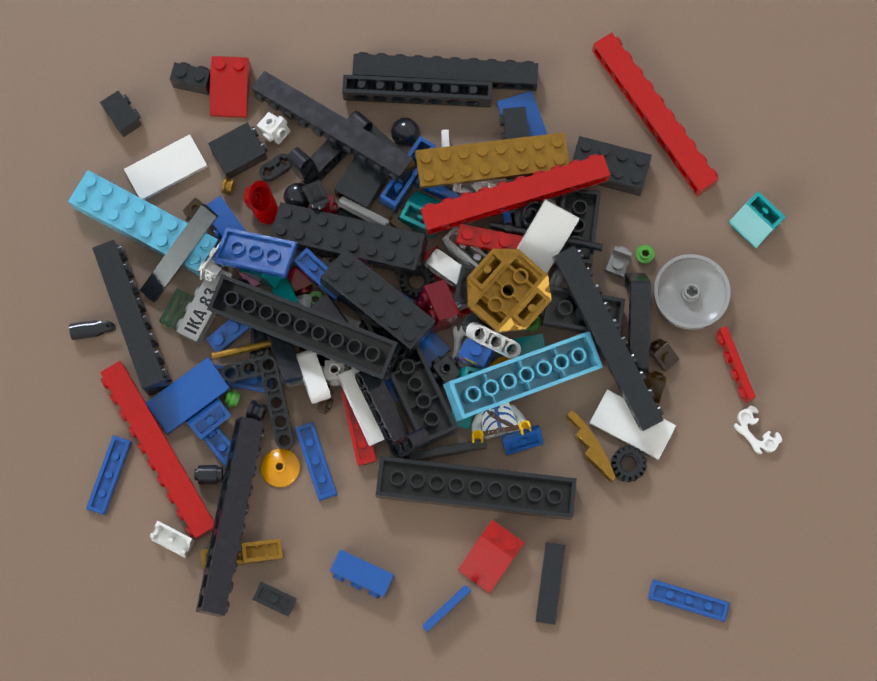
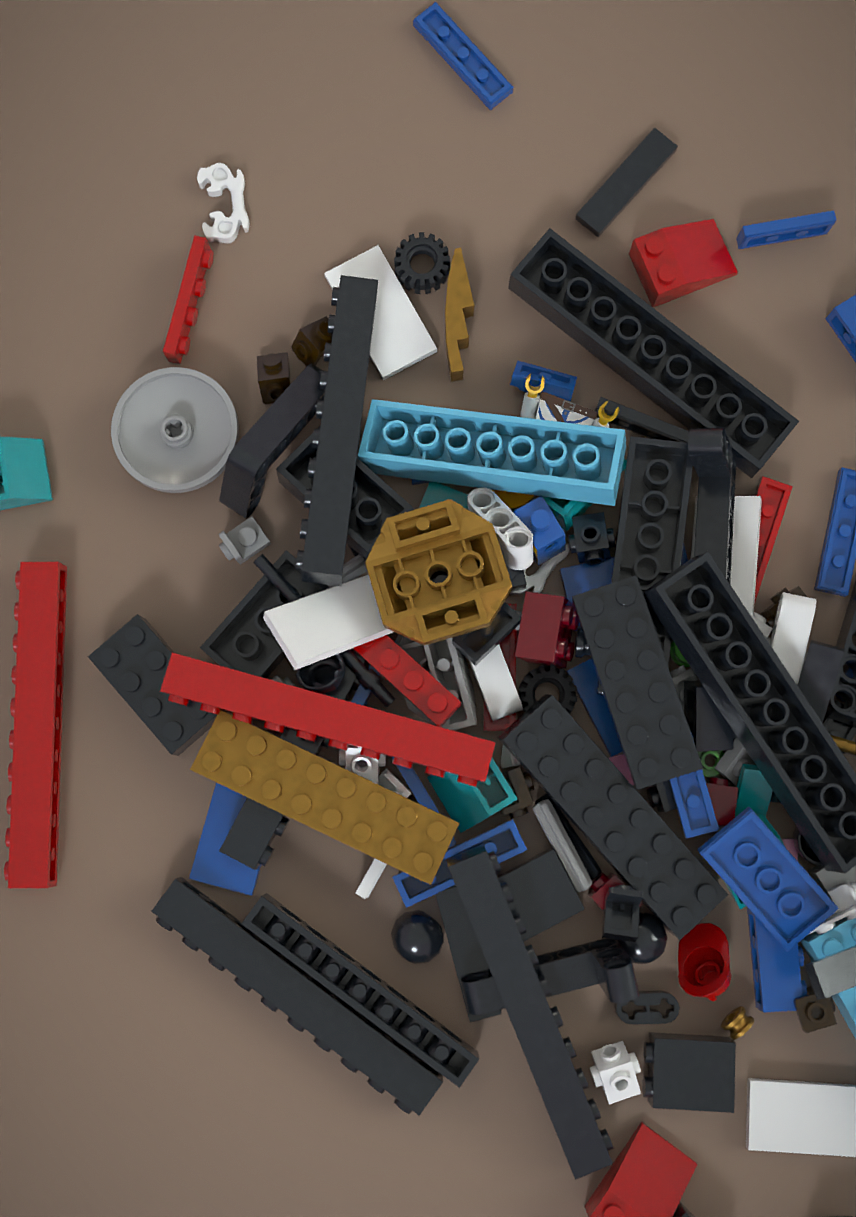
camera: 145 degrees left, 5 degrees up
(642, 259) = (208, 532): bright green plate -> none

